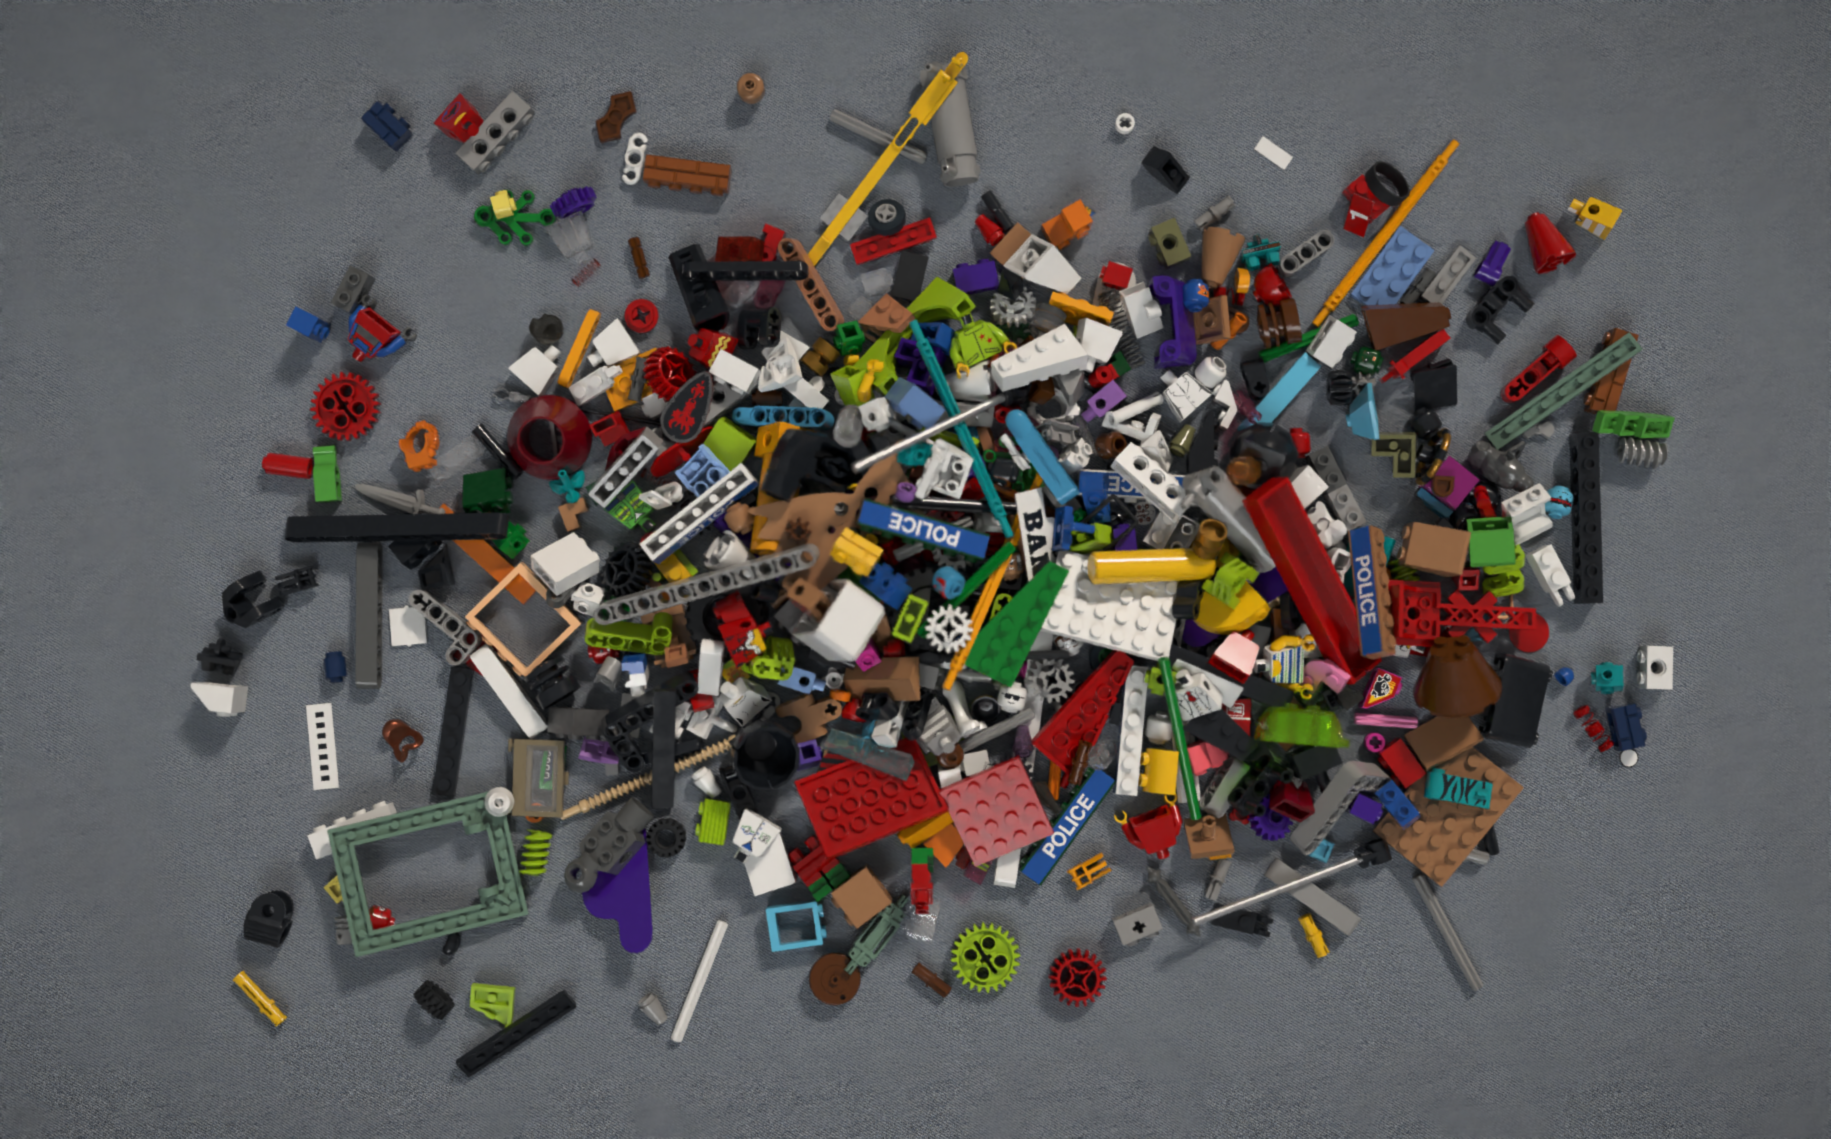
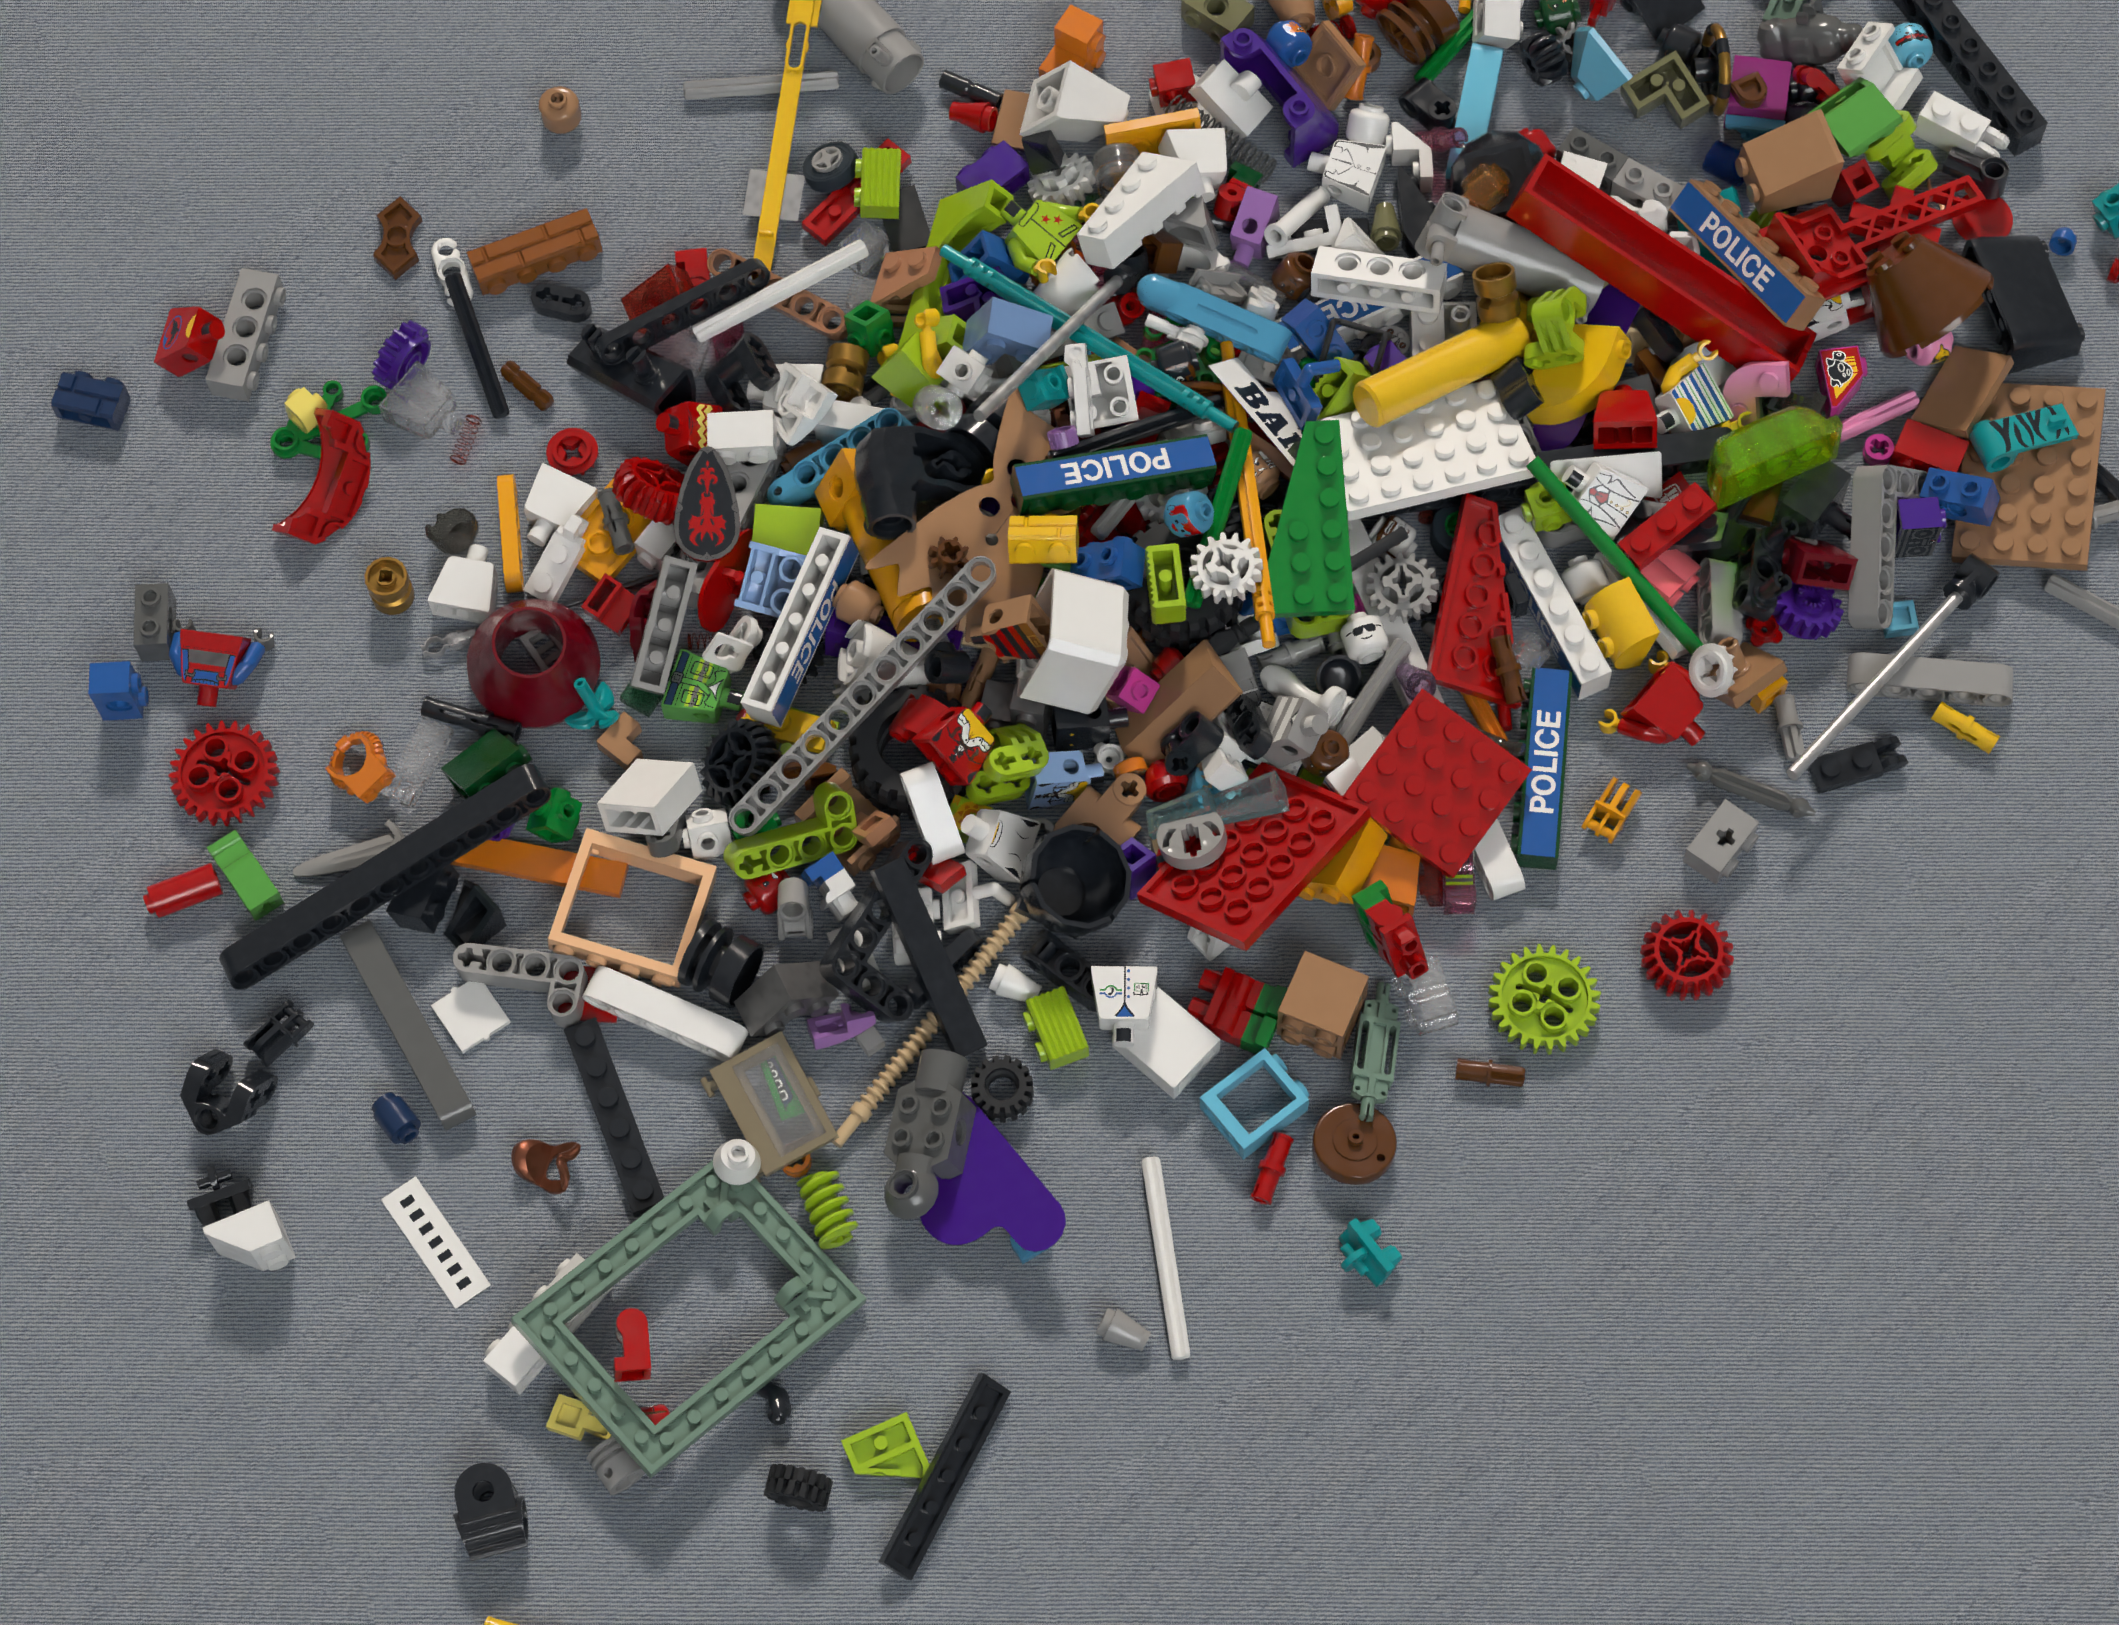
camera: 30 degrees left, 20 degrees down
(385, 877) = (634, 1337): none -> red leg
(493, 344) = (389, 585): none -> pearl gold wheel
(496, 263) = (338, 483): none -> red windscreen
(622, 216) = (477, 345): none -> black axle
(690, 211) = (561, 302): none -> black beam
(783, 966) = (1272, 1168): none -> red pin
(797, 288) = (780, 290): none -> white axle
(805, 1033) = (1365, 1254): none -> teal hips
(849, 779) = (1172, 839): none -> light grey piece
(906, 248) = (879, 183): none -> lime brick
(1186, 838) = (1701, 665): none -> white gear
(1218, 735) = (1667, 526): none -> red plate
(1402, 514) = (1721, 163): none -> clear blue piece
(1542, 602) = (1987, 173): none -> black piece

